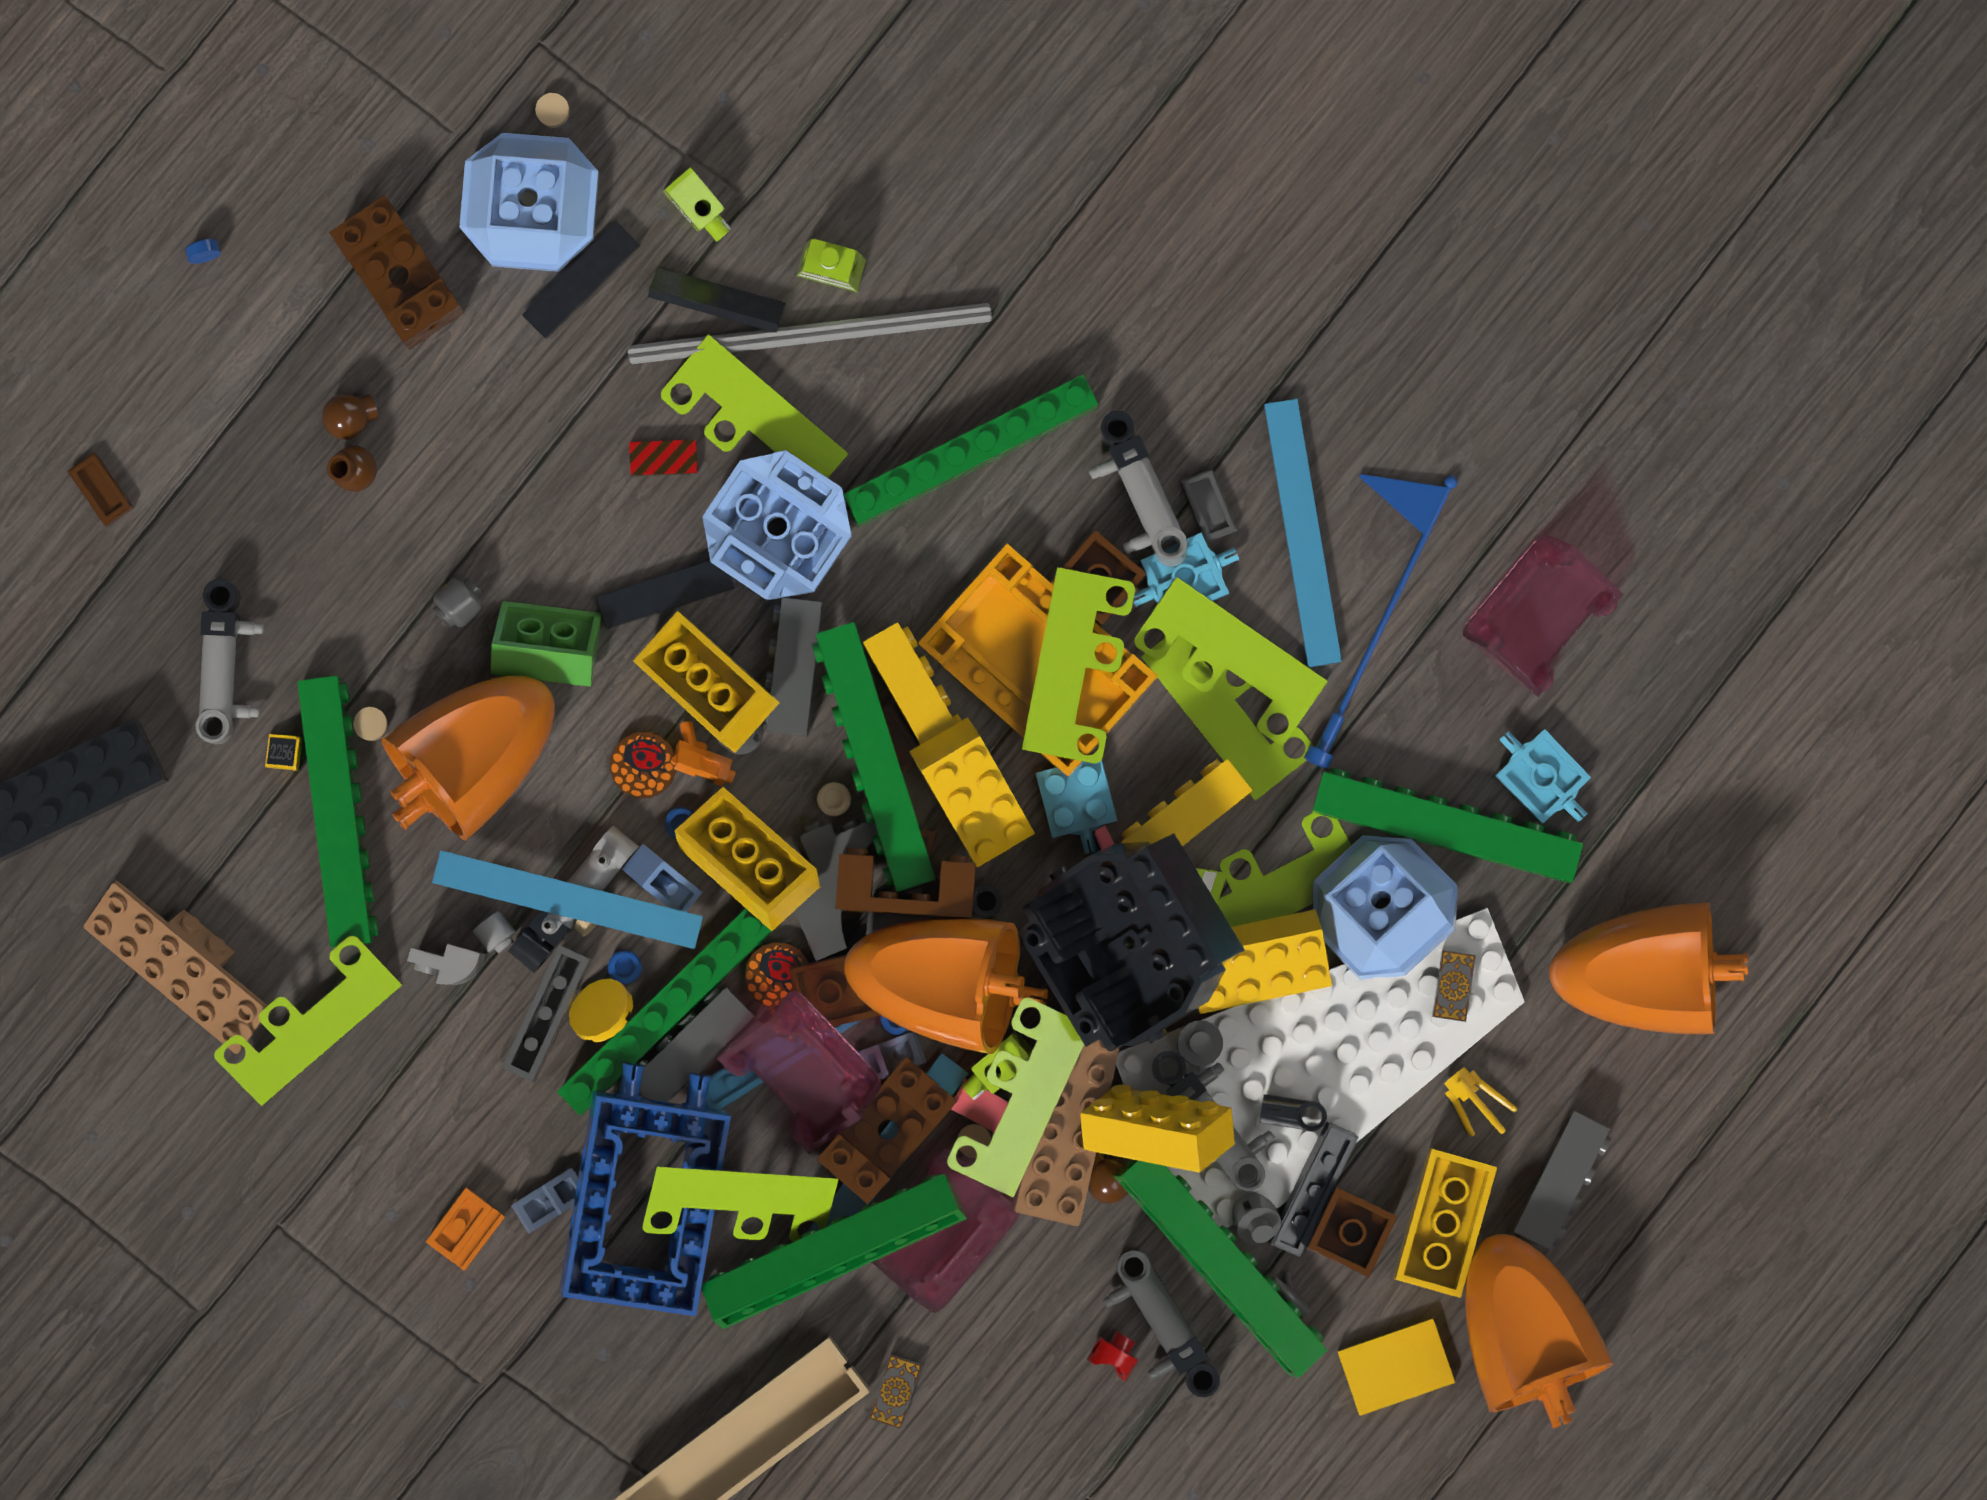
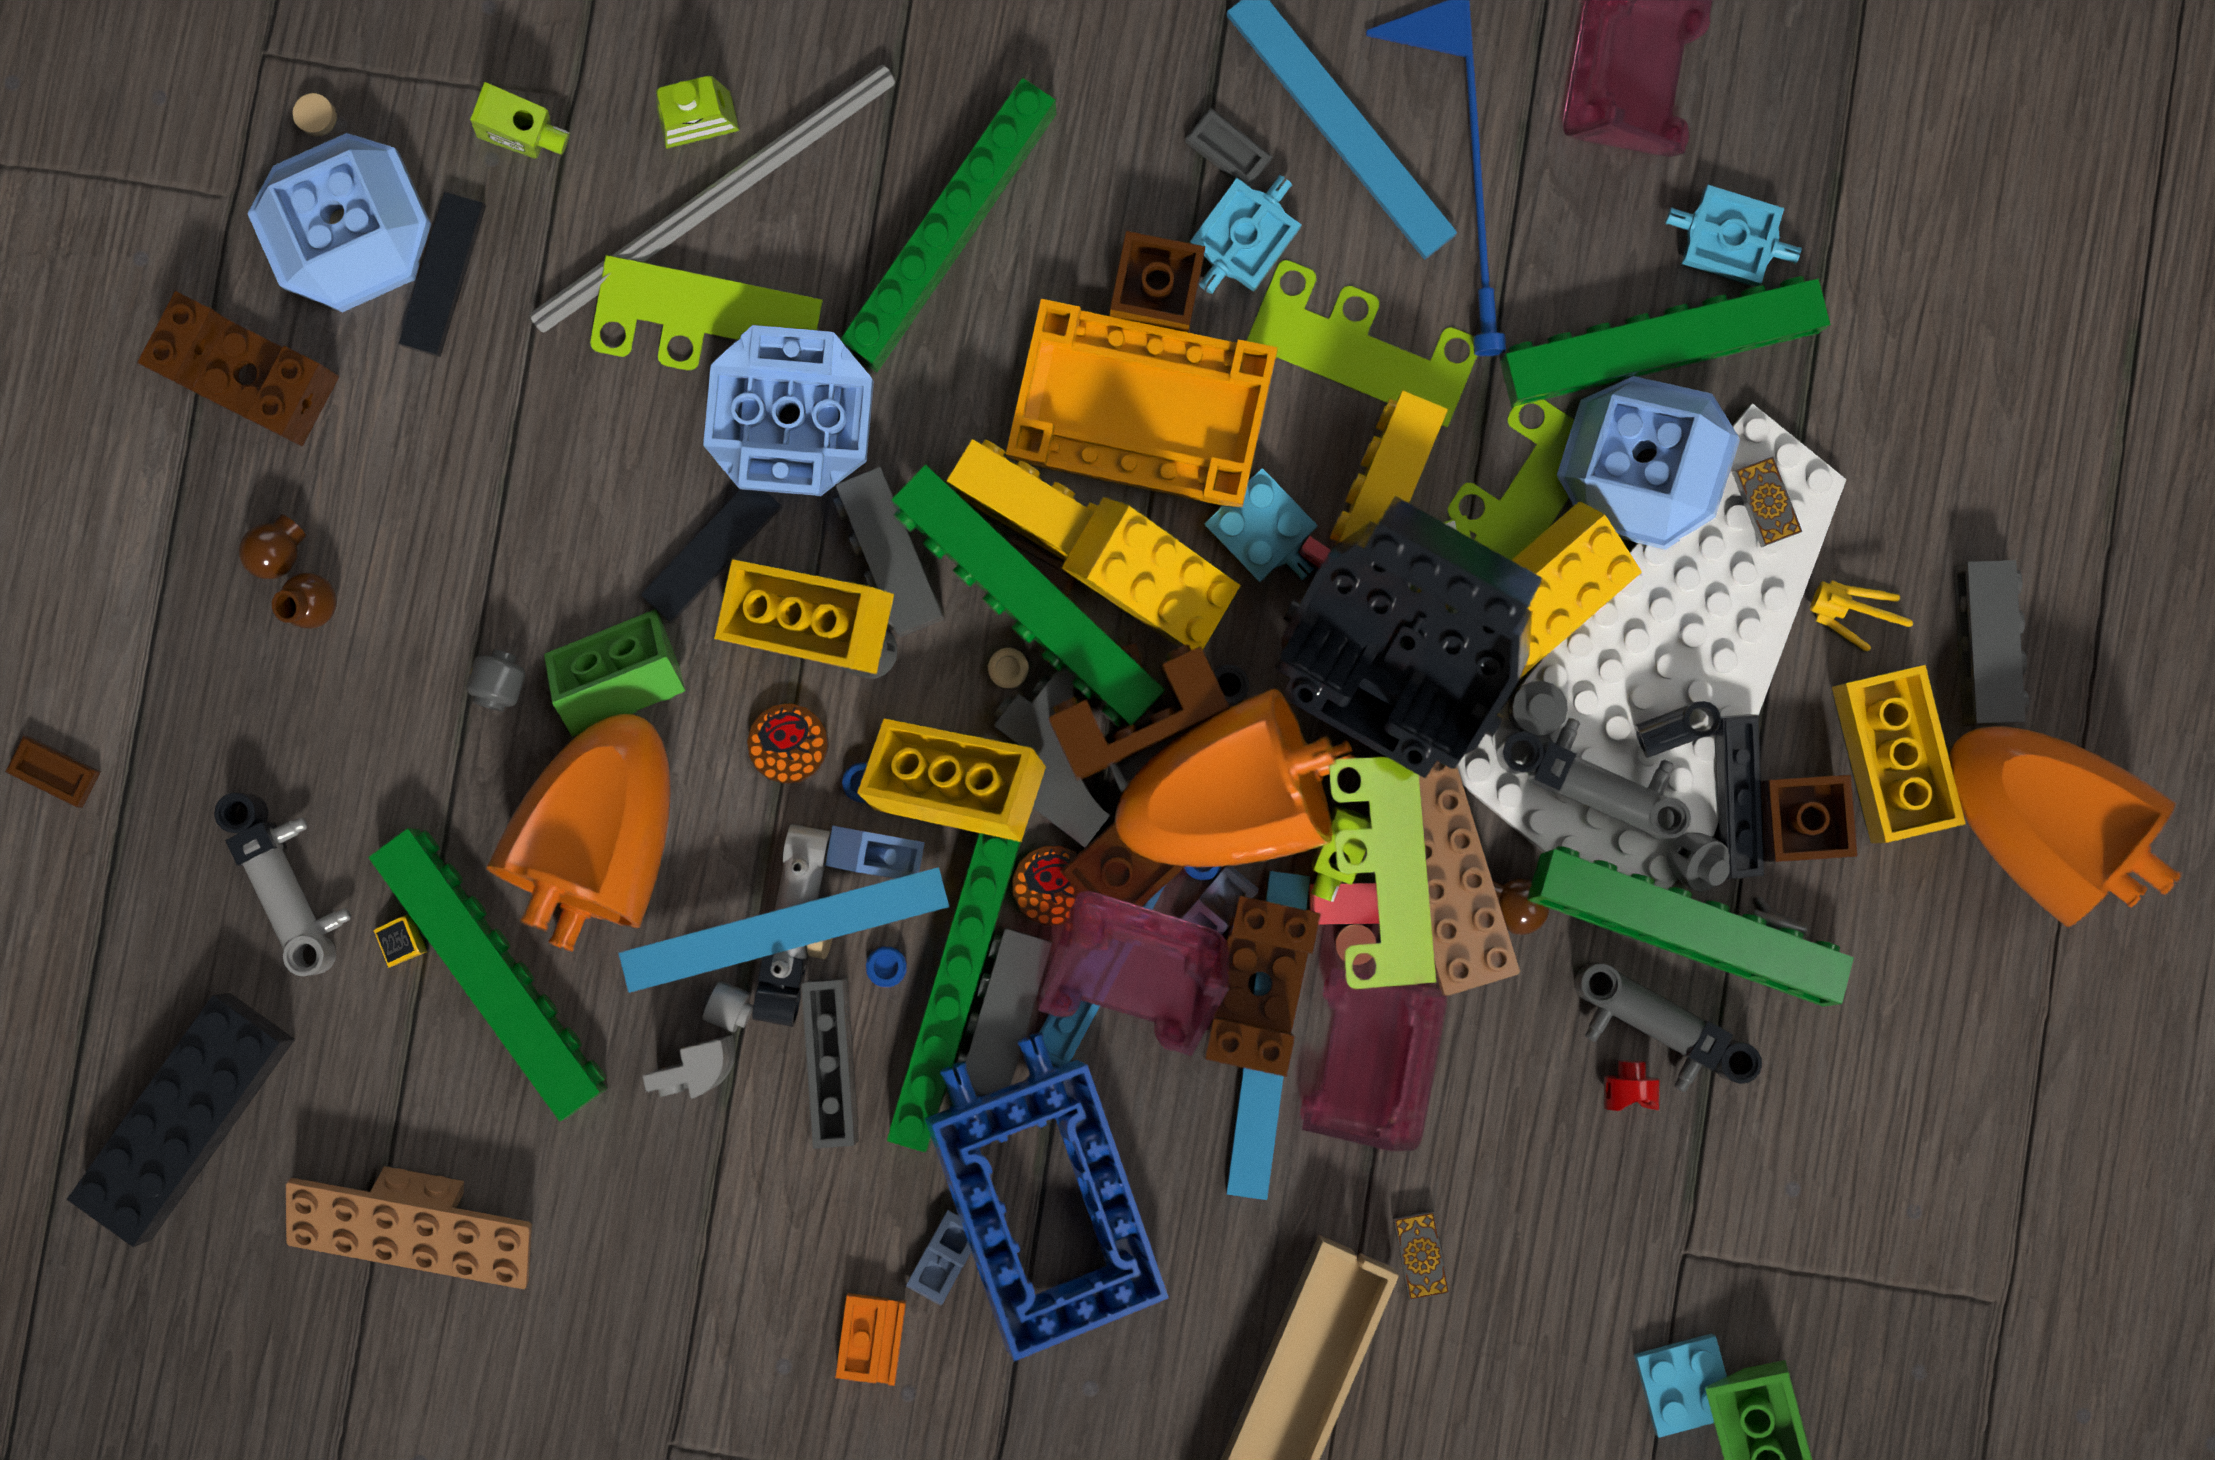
camera: 30 degrees left, 0 degrees up
(202, 251) = (22, 461): blue tile -> none
(311, 1034) = (592, 1225): lime piece -> none
(370, 724) = (472, 859): tan tile -> none
(600, 1010) = (885, 1027): yellow tile -> none
(663, 458) = (631, 411): tile -> none
(694, 759) = (838, 706): orange piece -> none
(716, 299) = (595, 215): black tile -> none
(744, 1192) = (1147, 1139): lime piece -> none
(833, 1250) = (1275, 1145): green brick -> none
(1064, 655) = (1170, 388): lime piece -> none
(1145, 491) = (1124, 145): light grey piece -> none
(1157, 1128) = (1551, 822): yellow brick -> none
(1235, 646) = (1337, 277): lime piece -> none
(1396, 1366) = (1928, 934): yellow tile -> none
(1648, 970) = (1971, 366): orange windscreen -> none

